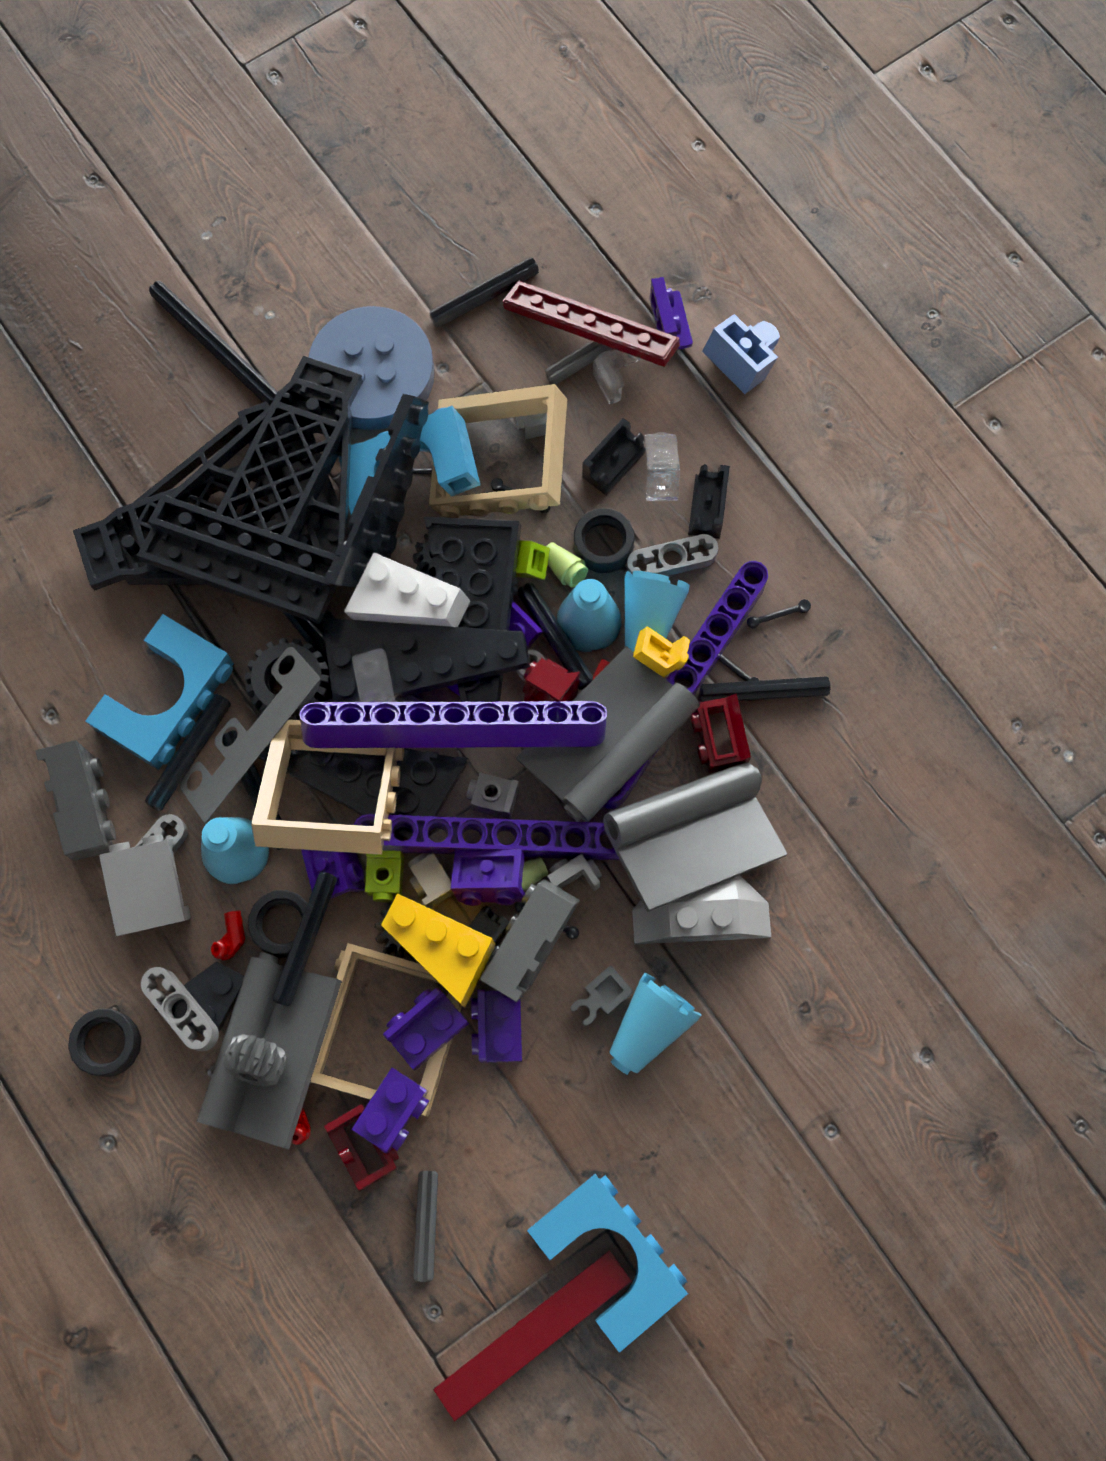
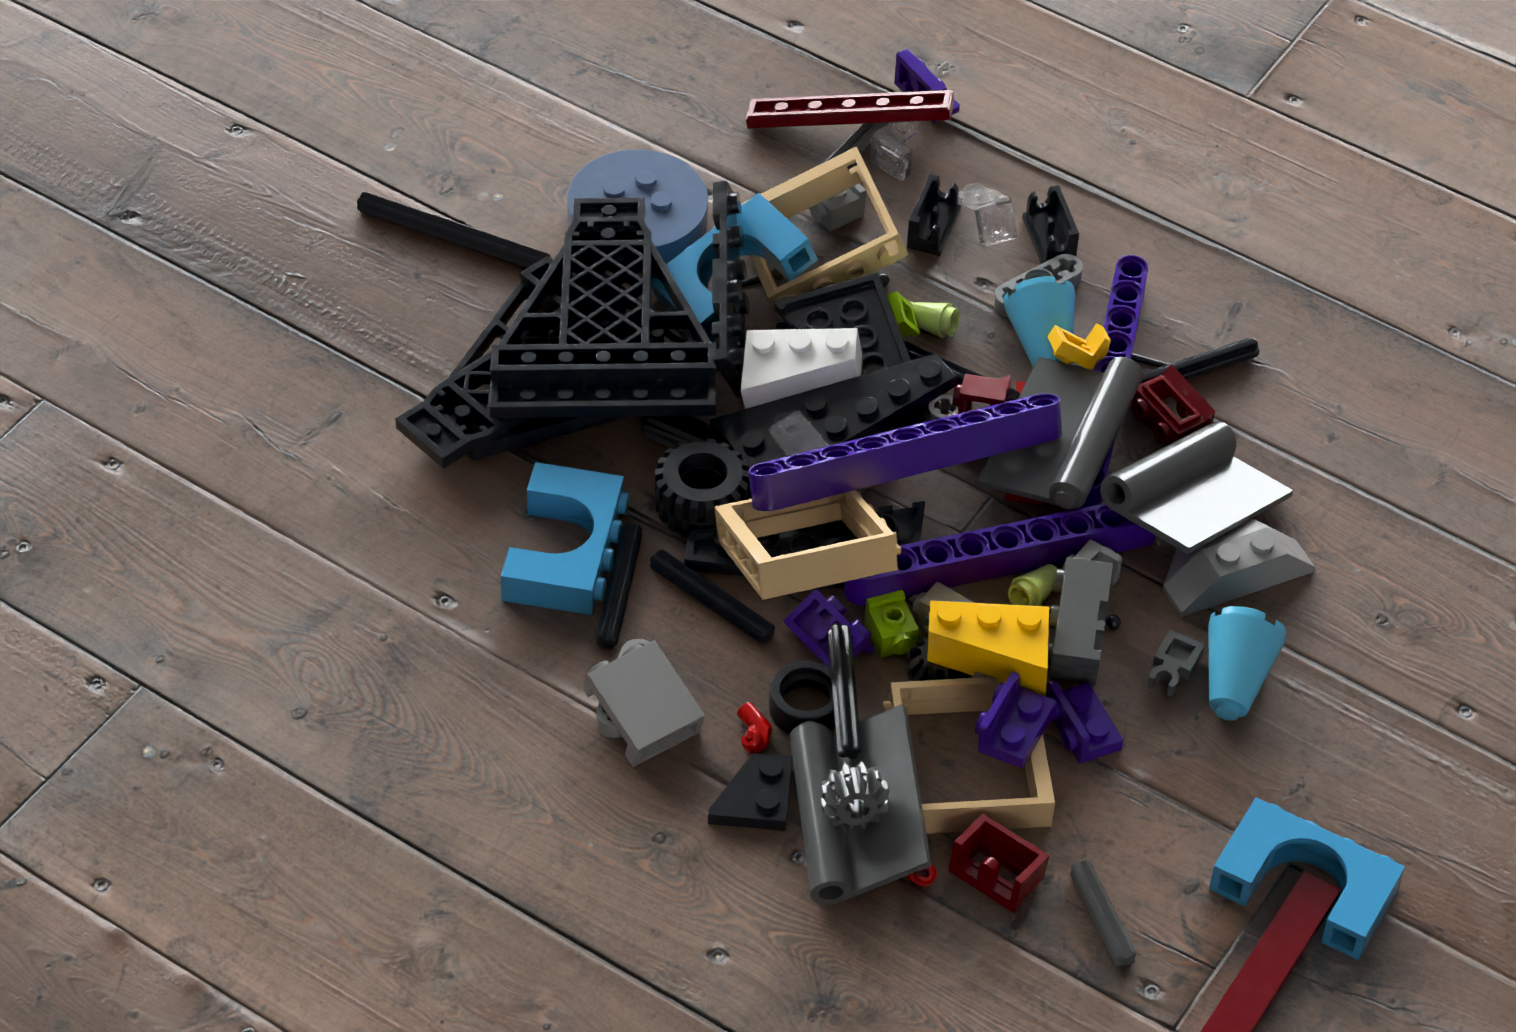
camera: 25 degrees left, 25 degrees down
(78, 800) = (525, 648): dark grey wedge -> none
(85, 1024) = (670, 885): black tyre -> none
(165, 1003) = (751, 809): light grey beam -> none
(230, 850) = (717, 642): medium azure cone -> none
(250, 743) = (695, 543): dark grey piece -> none
(391, 1110) = (1018, 802): dark purple bracket -> none
(484, 292) = (719, 119): black axle -> none
(488, 876) = (1010, 579): dark purple bracket -> none
(499, 805) = (967, 518): light grey brick -> none
(589, 616) = (985, 338): medium azure cone -> none
(608, 517) = (963, 268): black tyre -> none
(743, 351) = (1016, 97): medium blue brick -> none
(802, 607) = (1191, 292): black hinge -> none

